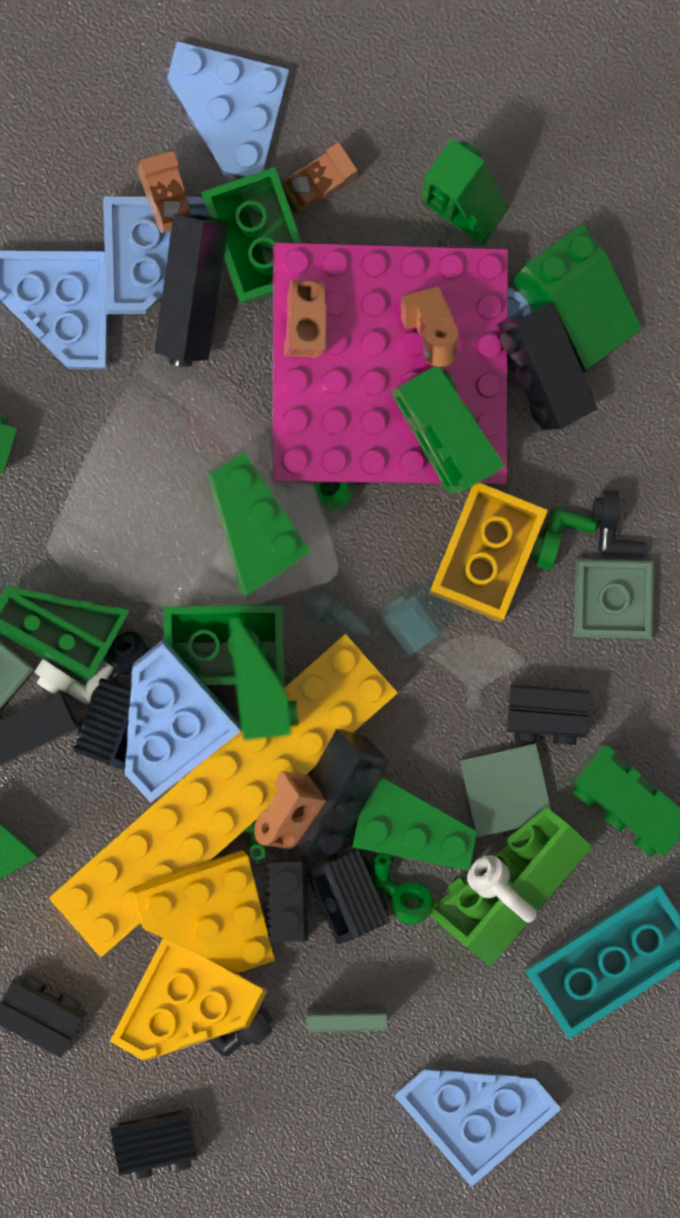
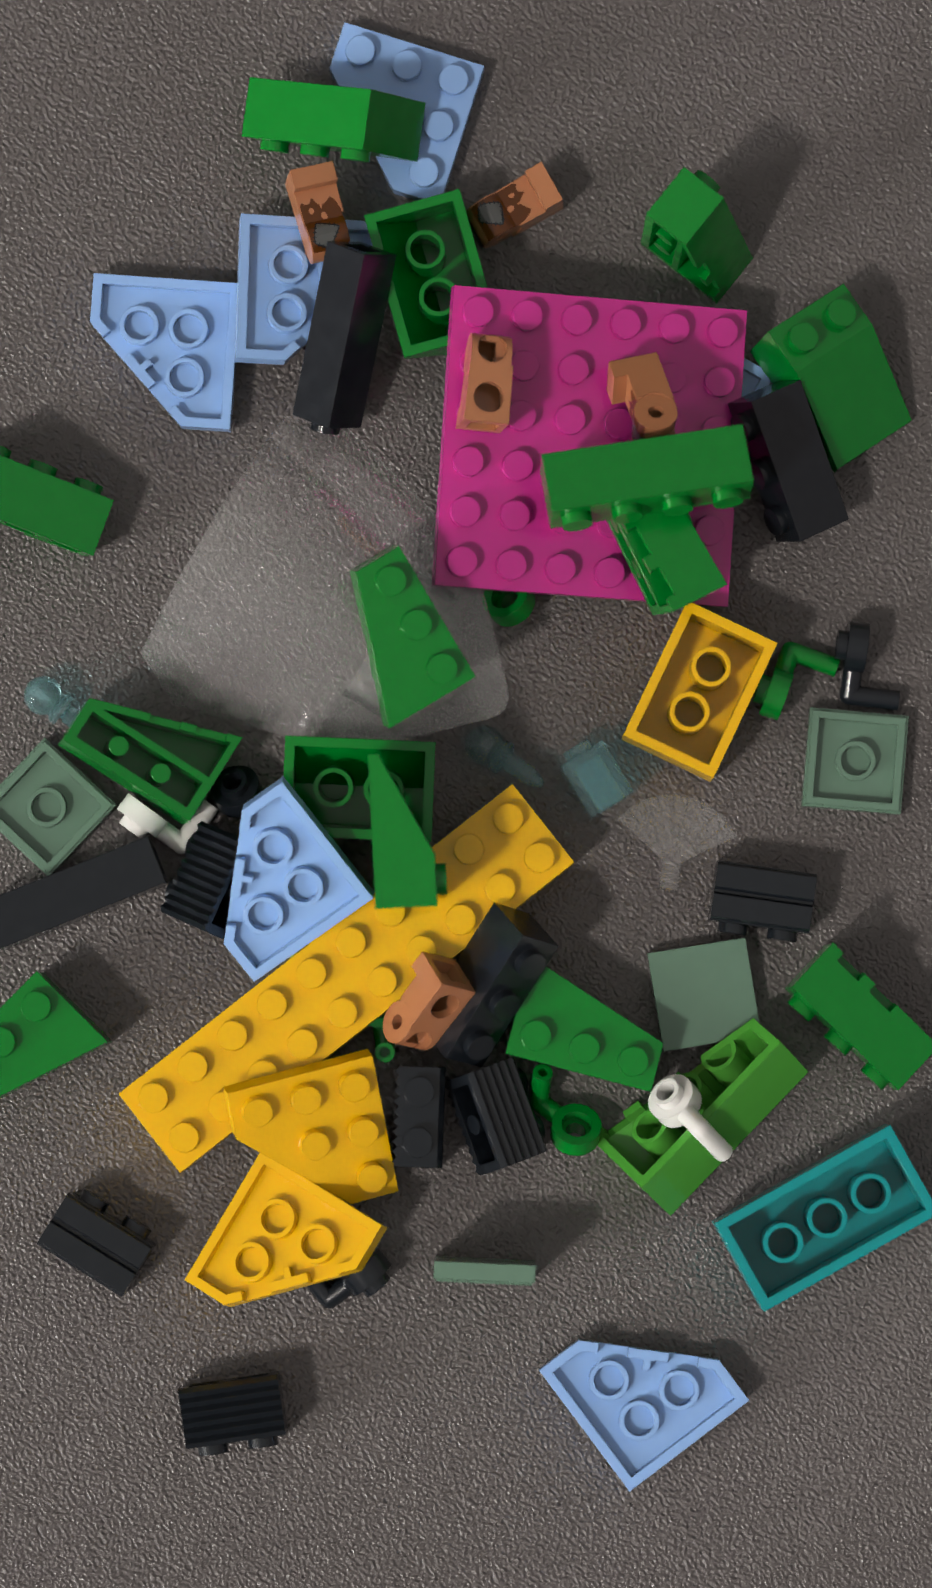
camera: 10 degrees right, 0 degrees up
(170, 118) = (332, 119): none -> green wedge
(437, 385) = (646, 477): none -> green brick

